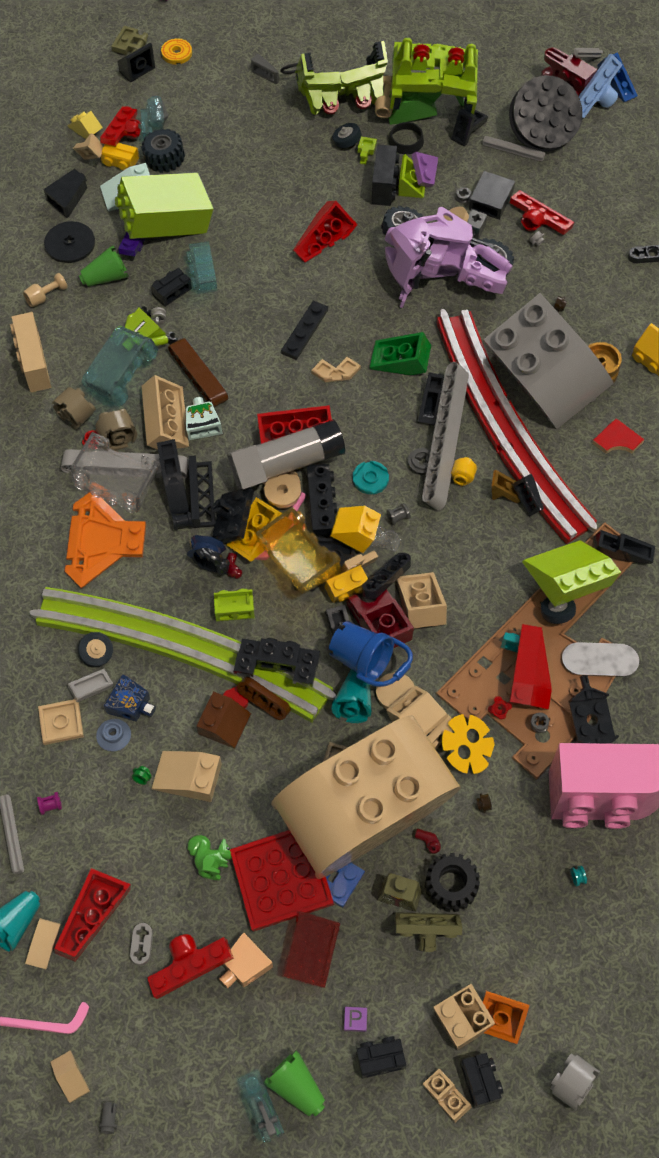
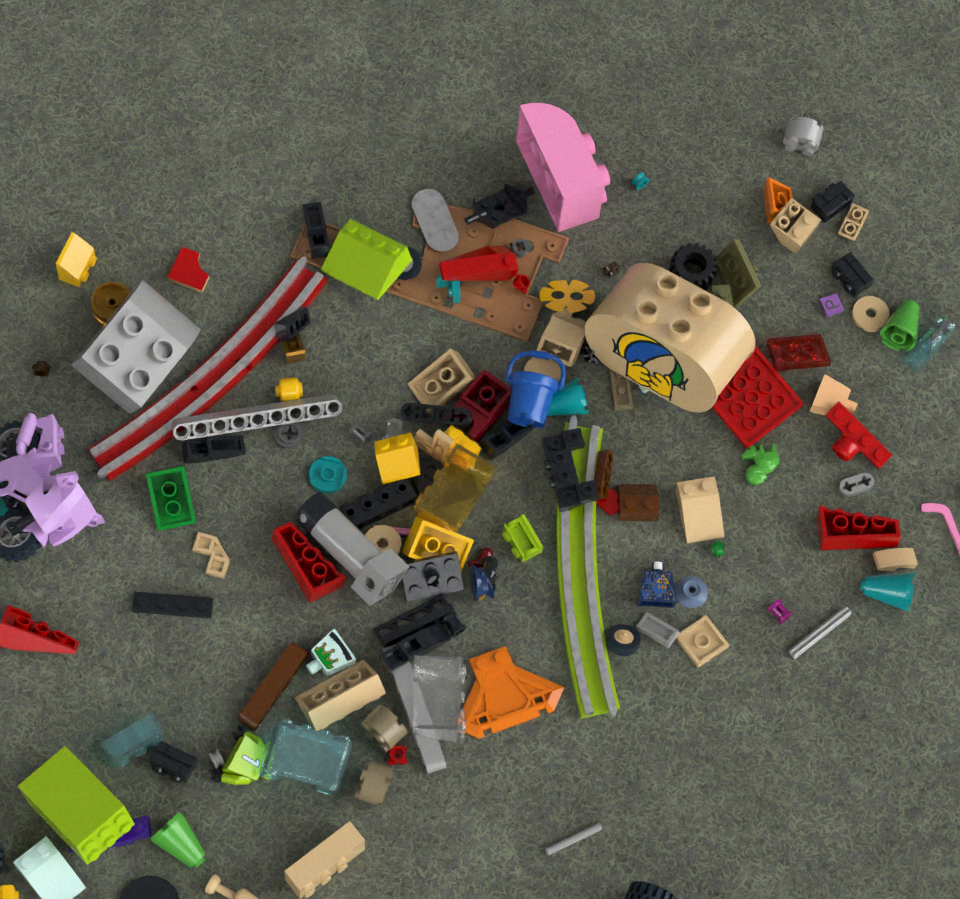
camera: 120 degrees left, 5 degrees up
(330, 1045) = (877, 306): none -> tan tile

